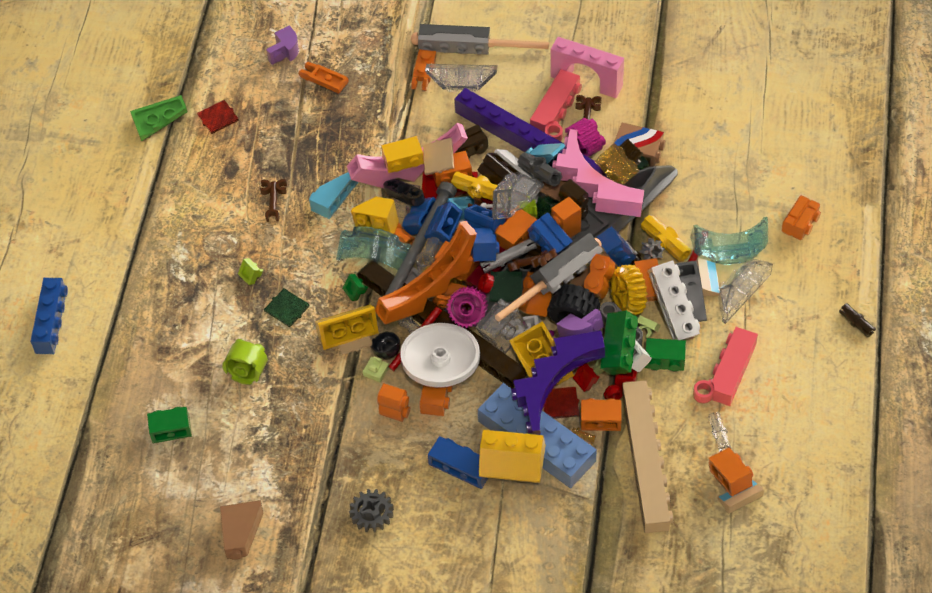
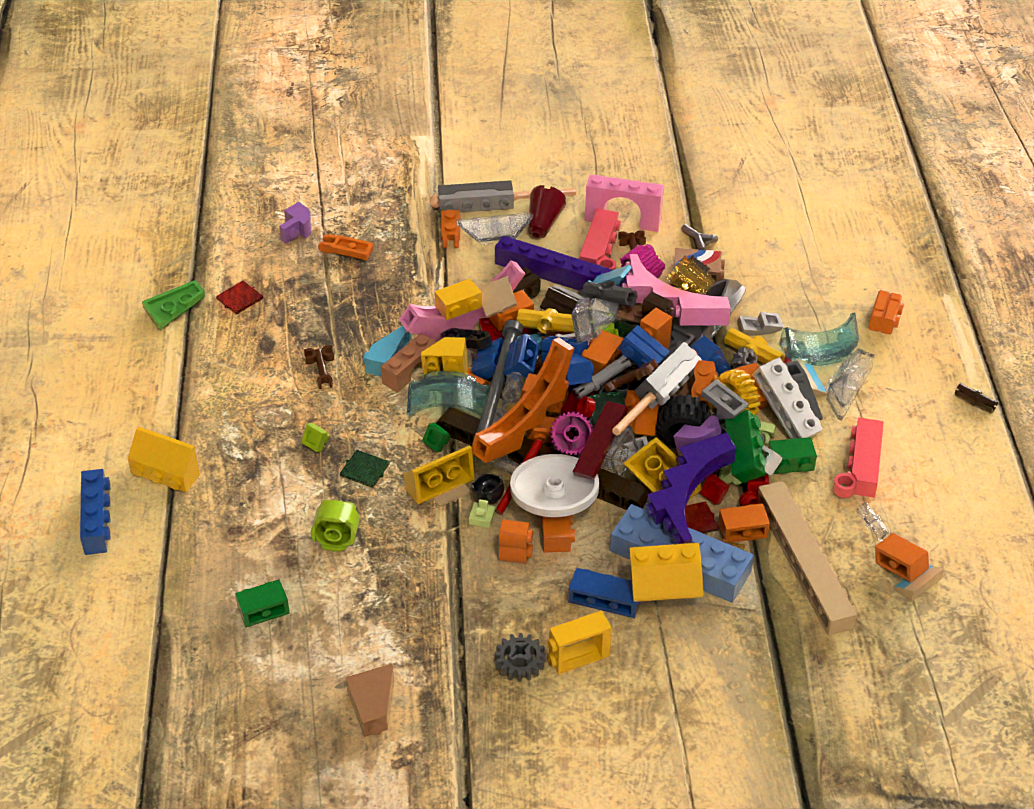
camera: 15 degrees left, 10 degrees down
(114, 276) = (163, 460): none -> yellow slope
(336, 215) = (398, 369): none -> nougat arch
(421, 507) = (582, 653): none -> yellow window
(486, 321) = (599, 441): none -> dark red tile
(512, 64) = (546, 208): none -> dark red cone
(611, 299) = (725, 400): none -> light grey slope
(652, 110) = (699, 237): none -> flat silver piece
(683, 213) = (764, 324): none -> light grey slope

